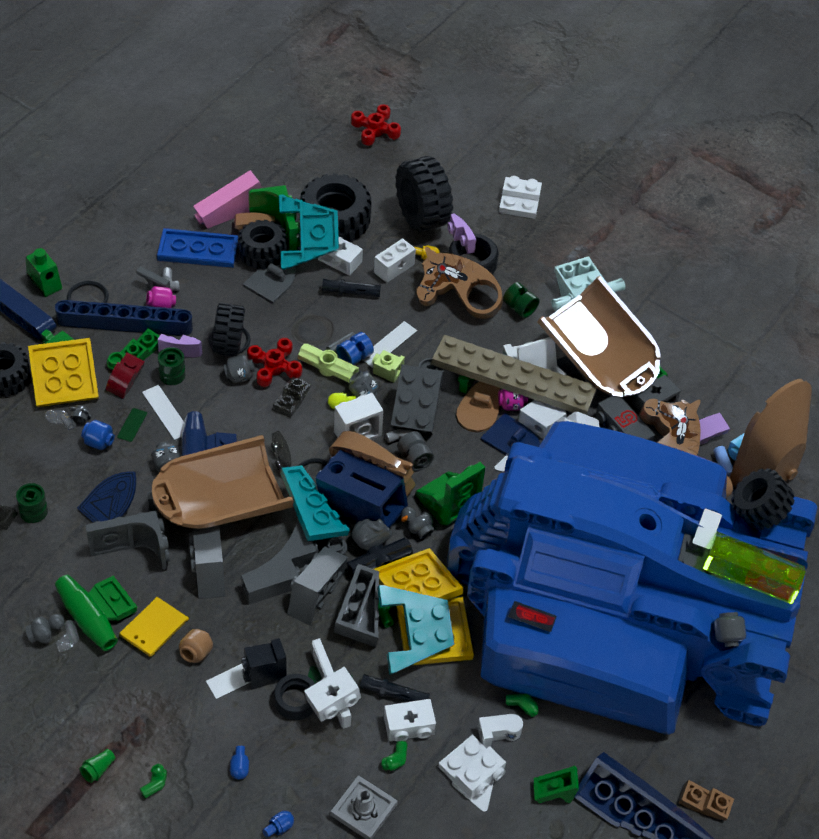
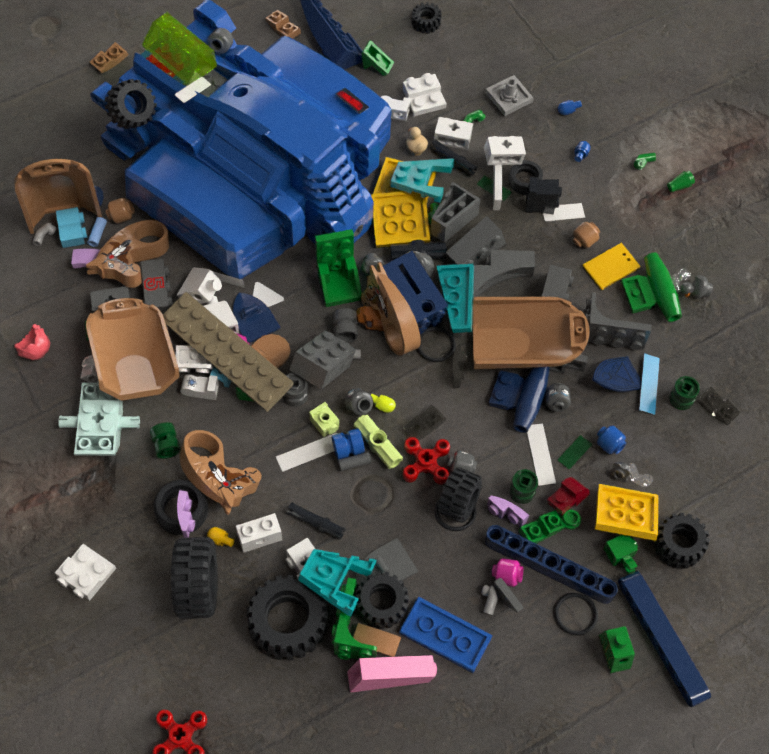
camera: 155 degrees left, 10 degrees up
(73, 512) = (649, 384): none -> sticker
(360, 416) = (382, 363): white brick -> none
(447, 687) = (416, 142): none -> tan animal
(696, 336) = (34, 344): none -> coral hair

